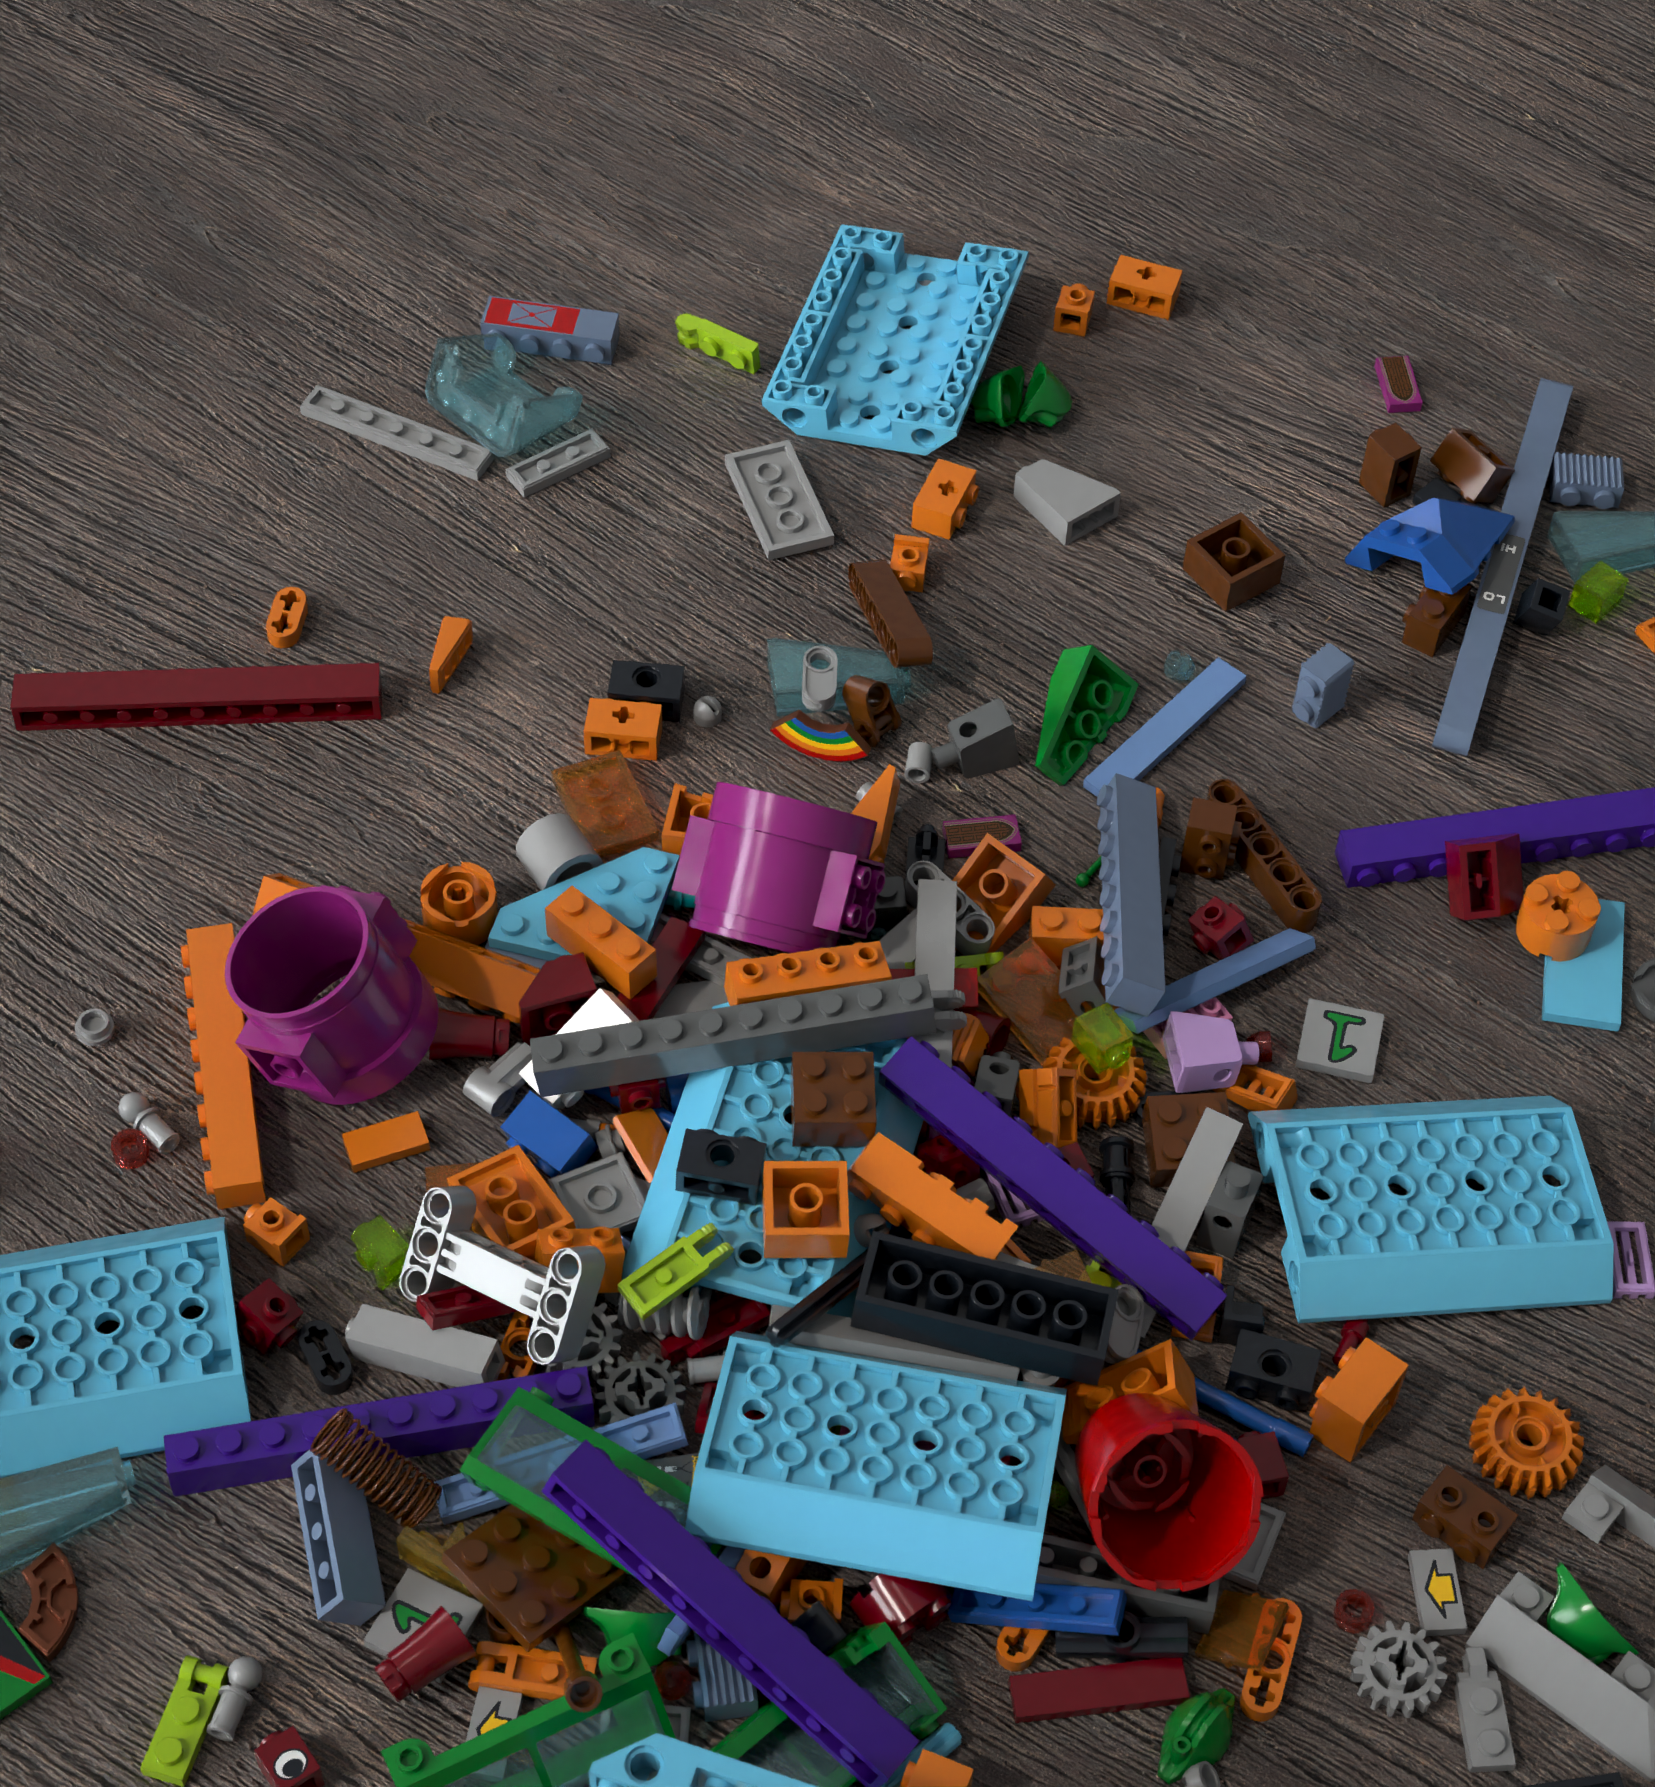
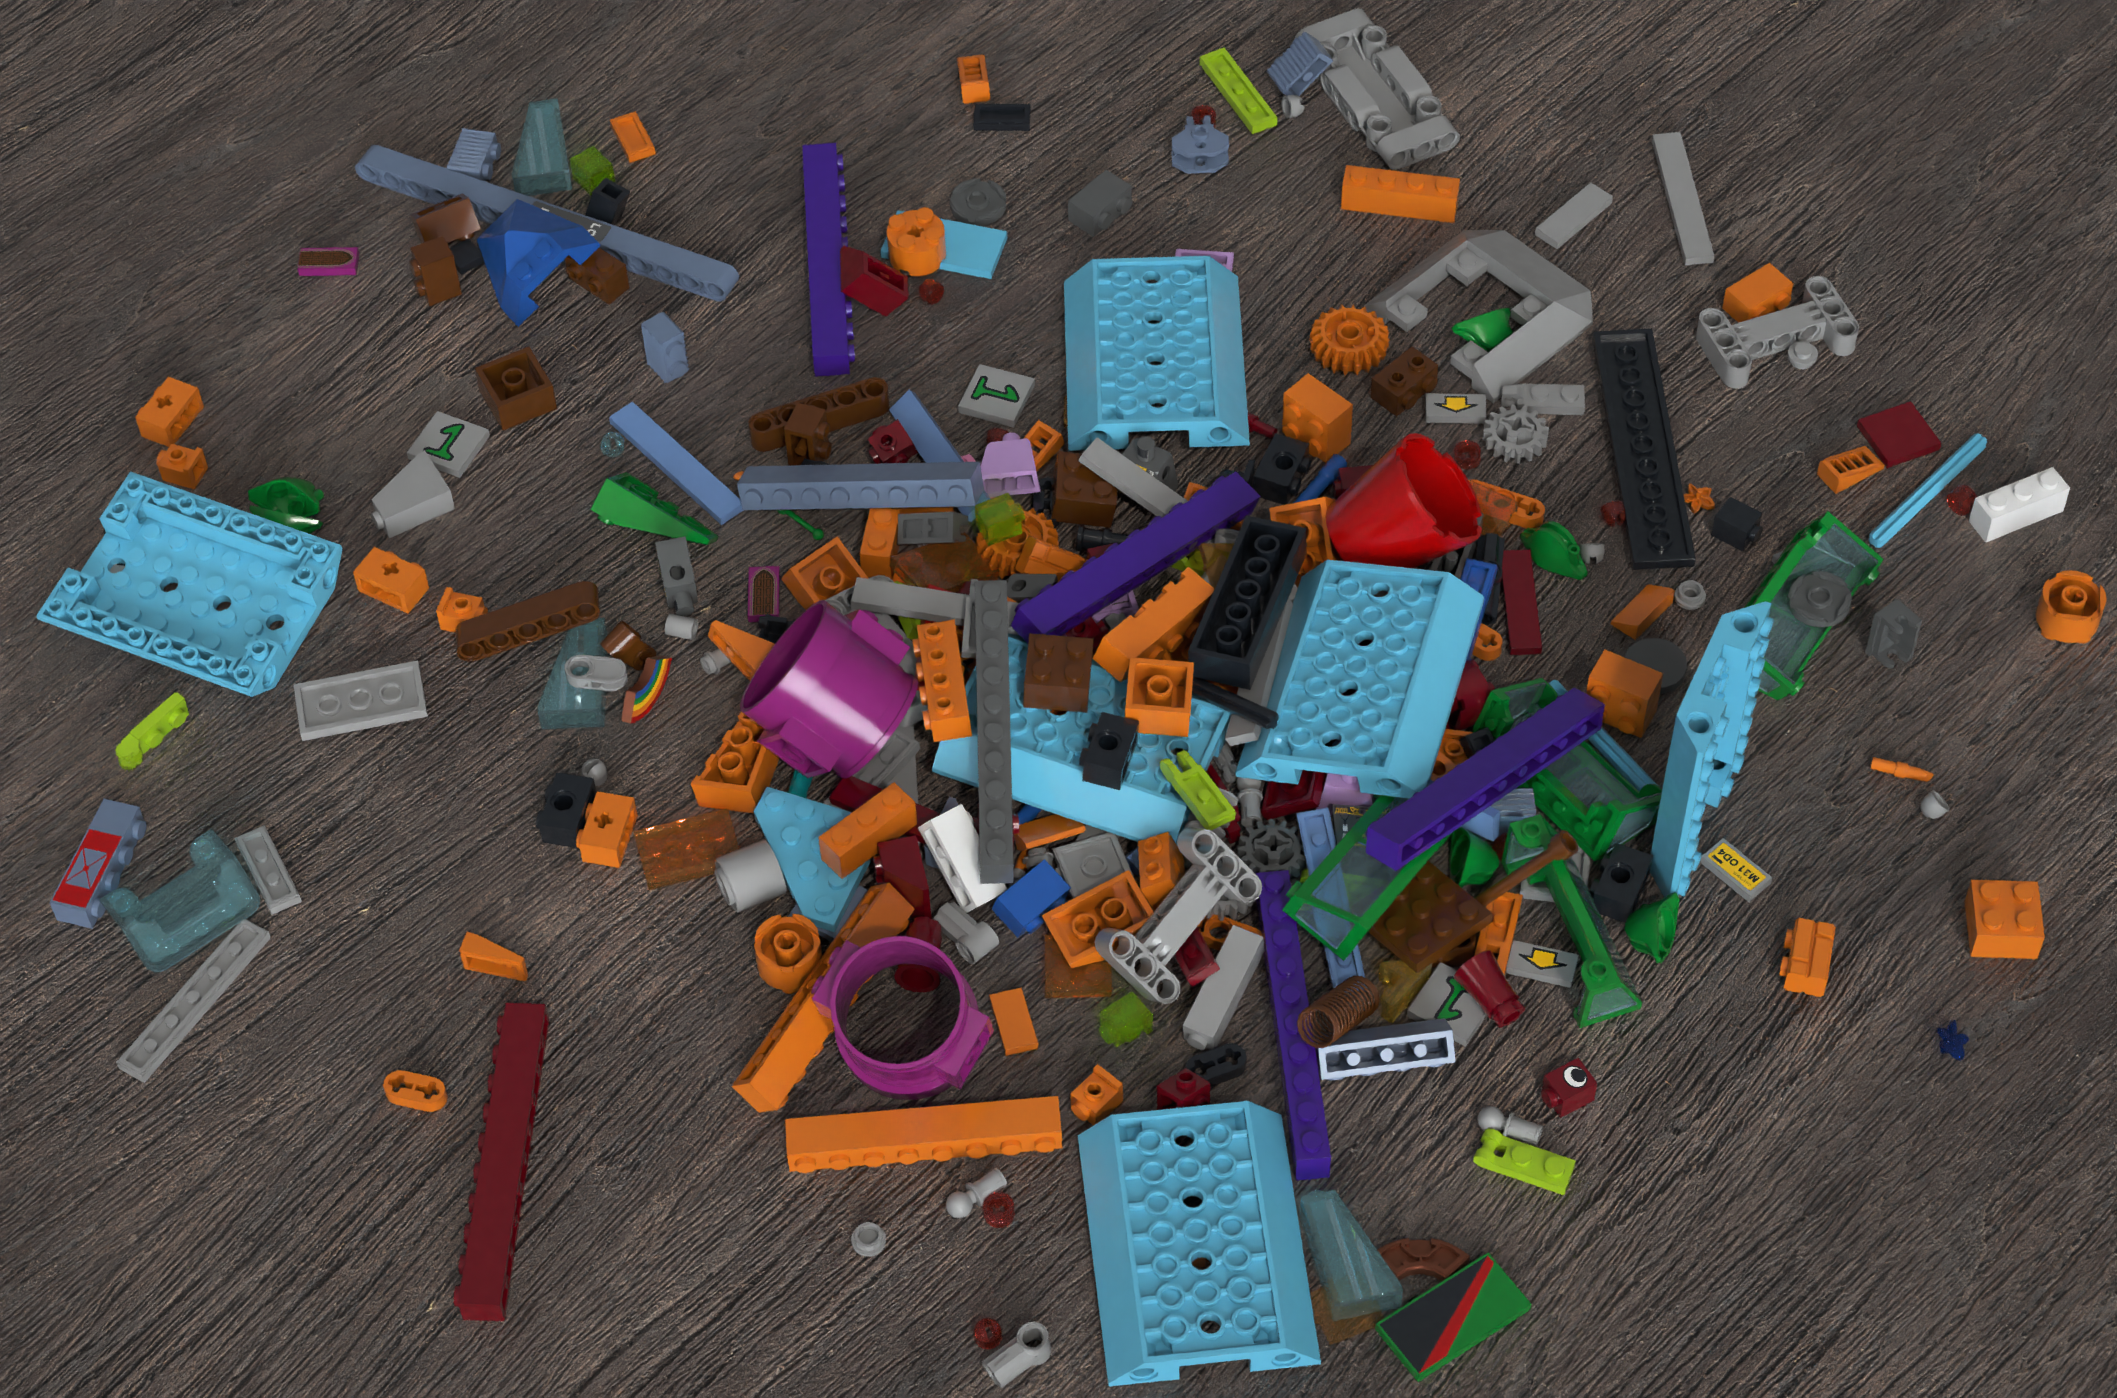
camera: 80 degrees left, 0 degrees up
(1152, 524) = (450, 443): none -> light grey tile
(1490, 947) = (935, 287): none -> clear red hinge

